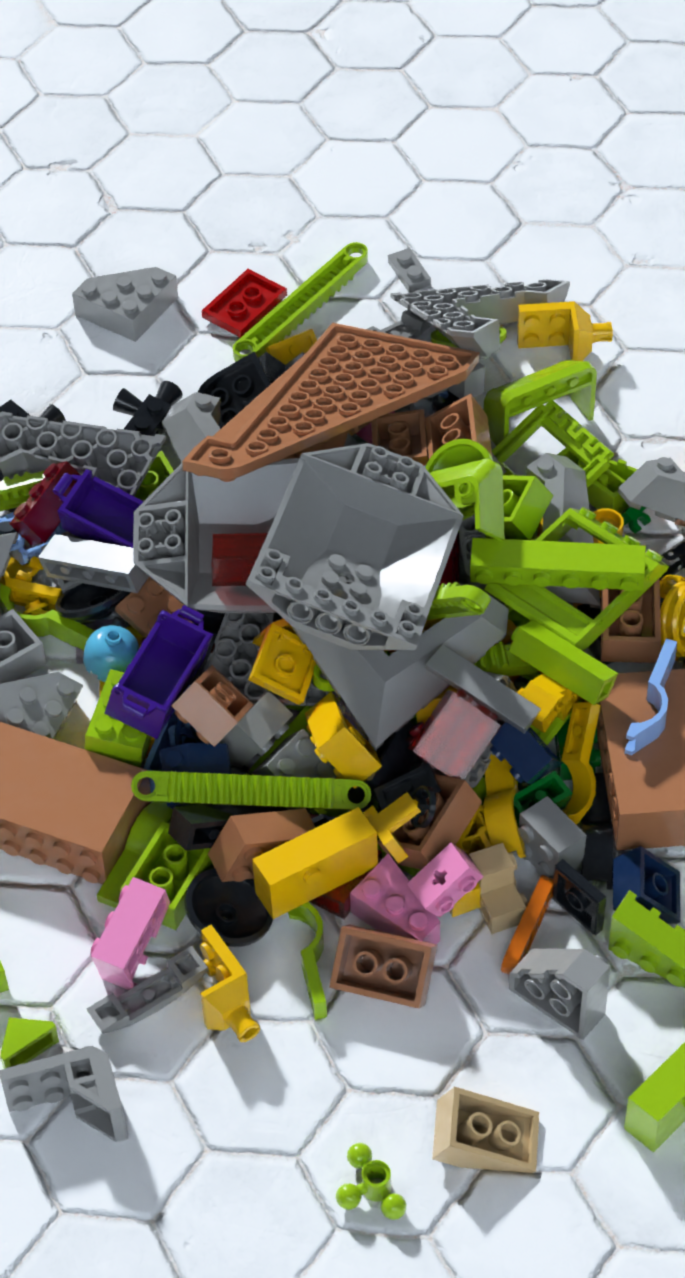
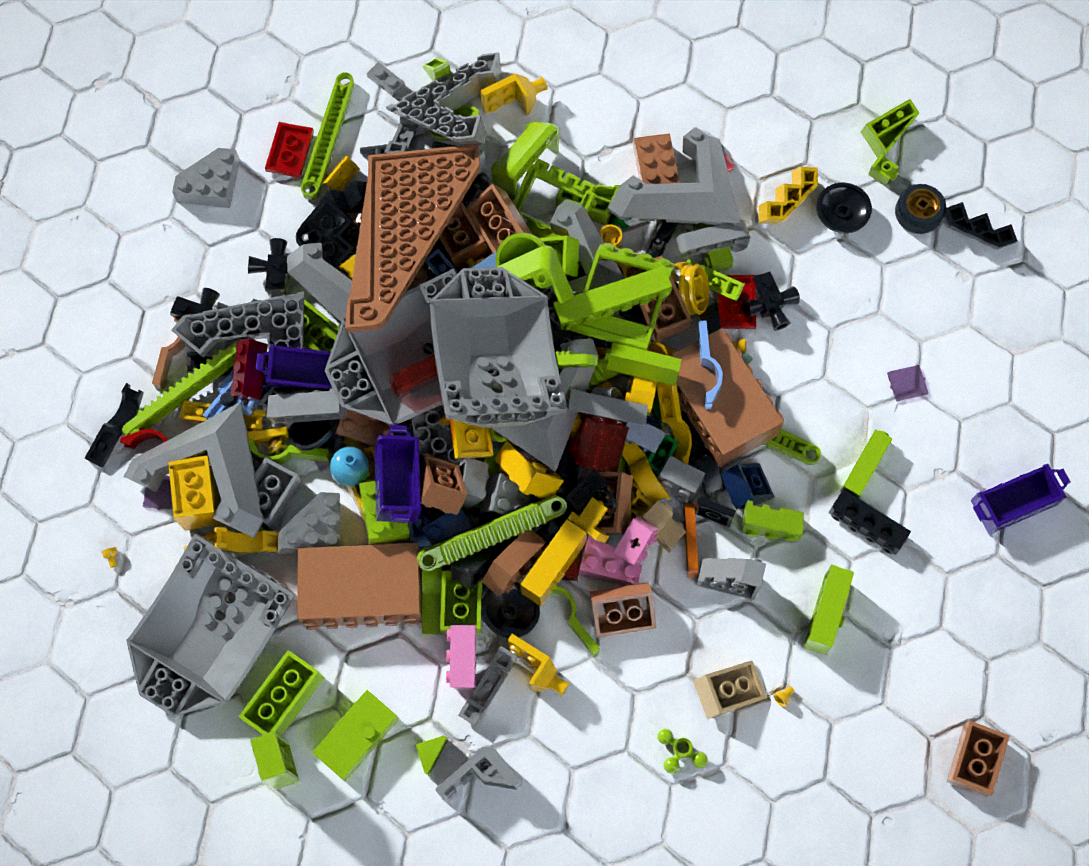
camera: 25 degrees left, 20 degrees up
(481, 276) = (437, 68): none -> lime slope
(558, 1177) = (782, 697): none -> yellow piece

